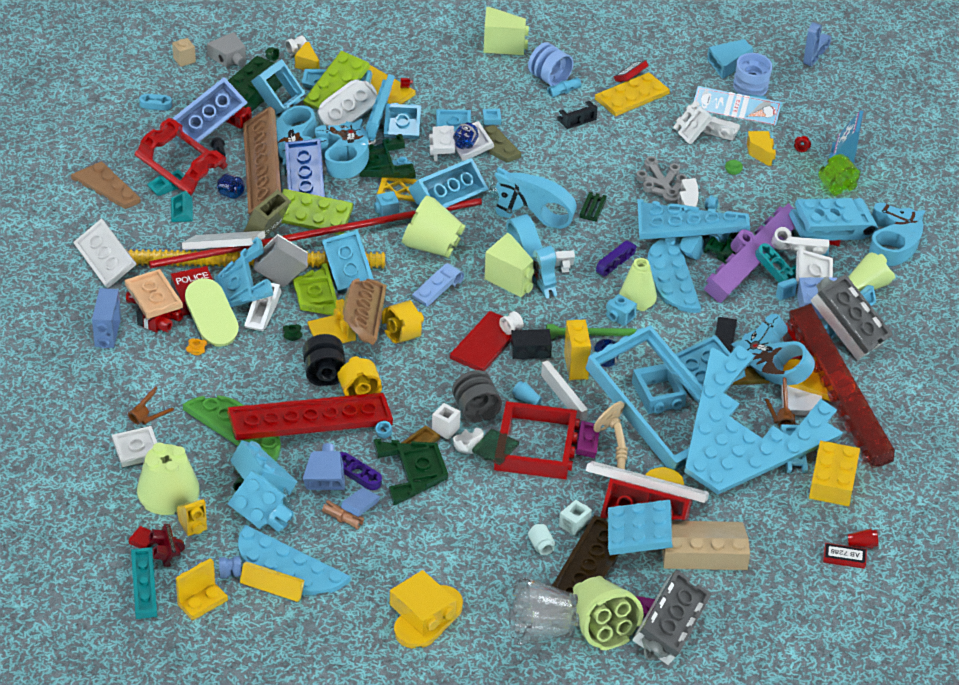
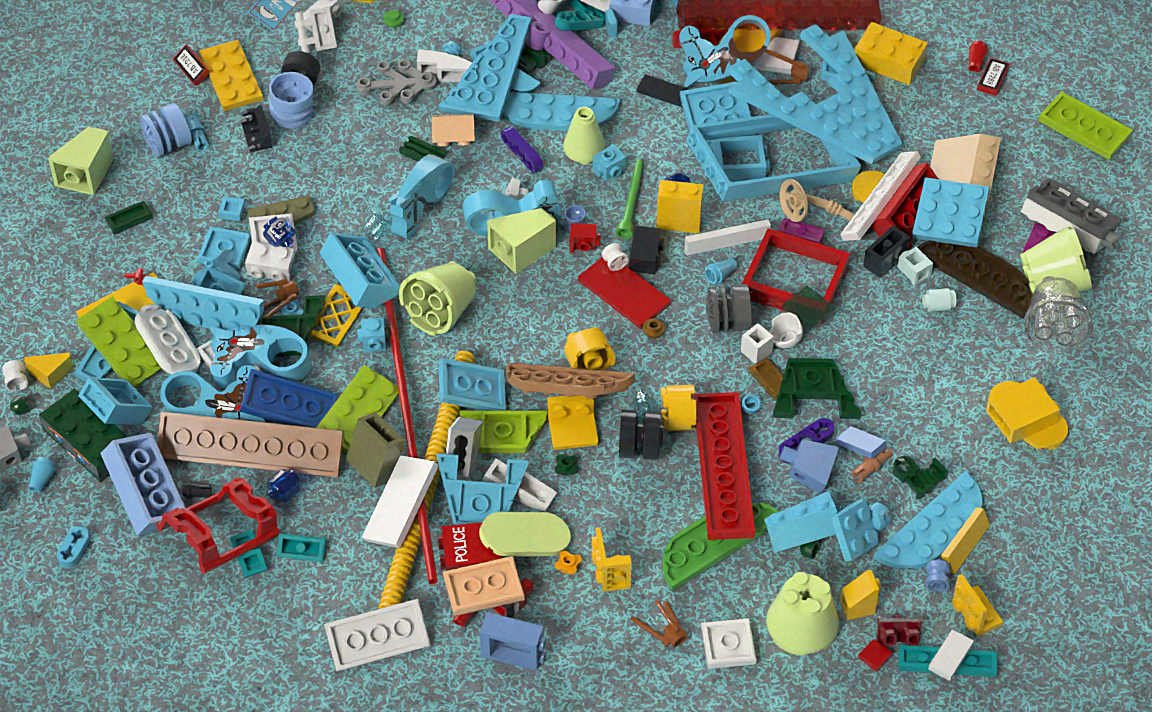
camera: 75 degrees left, 10 degrees up
(107, 183) = (222, 624): medium nougat wing -> none
(144, 578) = (951, 655): none -> white tile
(193, 356) = (611, 572): none -> yellow bracket
(213, 74) = (41, 473): none -> medium azure cone
(338, 552) = (924, 480): none -> dark green piece
(414, 155) = (286, 292): none -> dark orange plant
(427, 116) = (220, 262): none -> medium azure piece
(437, 284) = (522, 314): light blue plate -> none
(449, 363) = (653, 333): none -> pearl gold plate
(466, 71) = (128, 217): none -> dark green tile
(530, 305) = (584, 237): none -> red brick
(549, 298) = (574, 214): none -> medium blue wheel
(582, 489) = (886, 251): none -> black brick
(609, 121) = (291, 100): none -> light blue wheel
(618, 213) = (453, 129): none -> light nougat brick
(646, 121) = (302, 63): none -> black tyre
(807, 628) = (1085, 125): none -> lime plate

